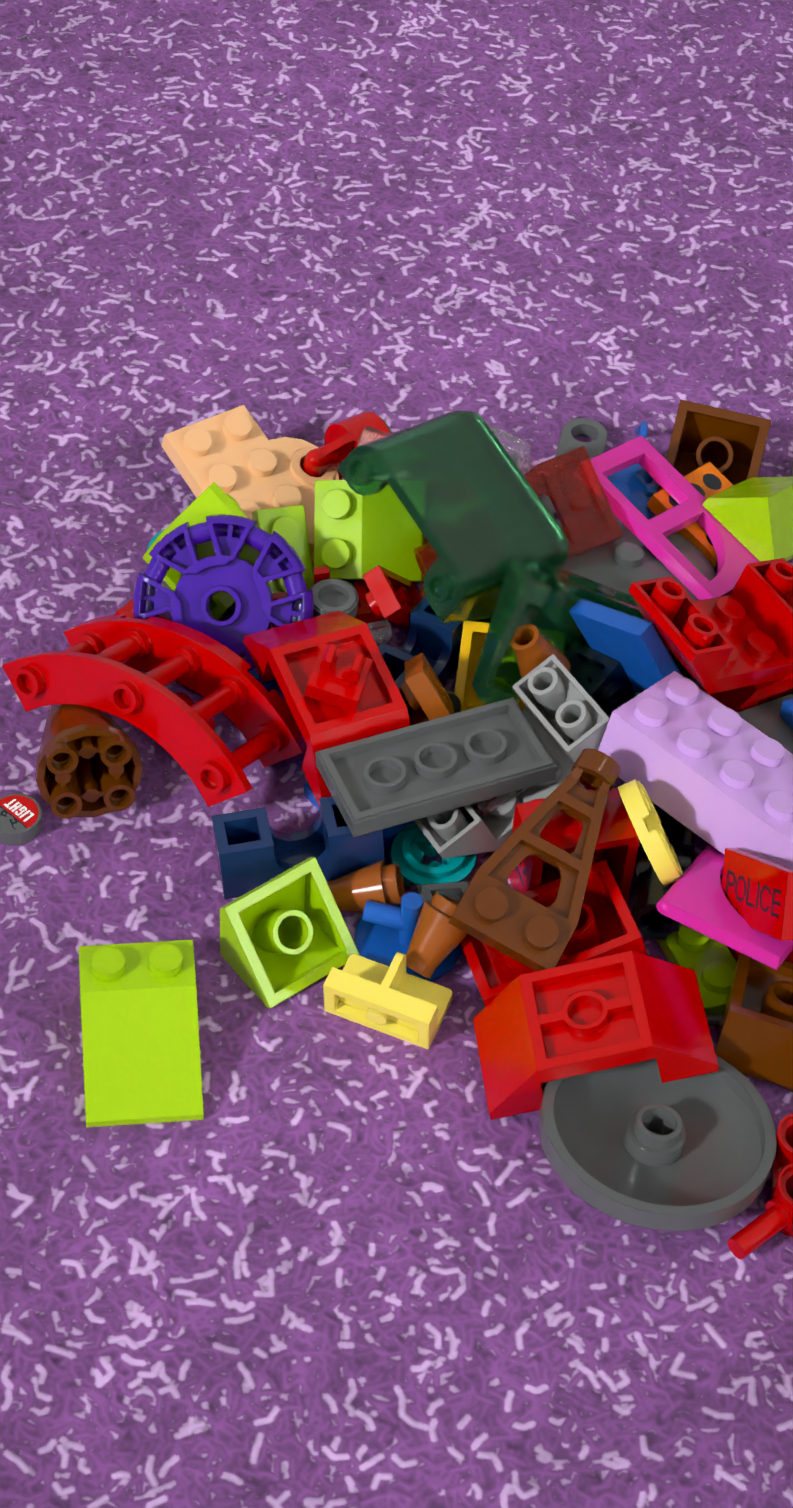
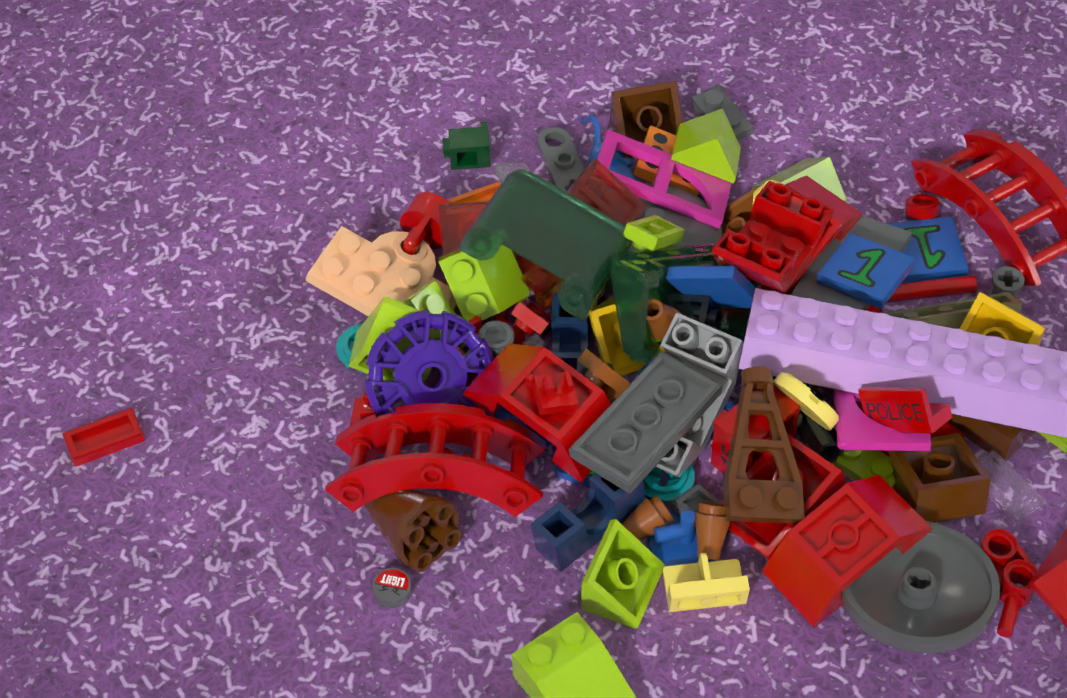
camera: 25 degrees left, 5 degrees up
(473, 391) = (468, 147): none -> dark green brick
(598, 560) = (653, 233): none -> lime plate

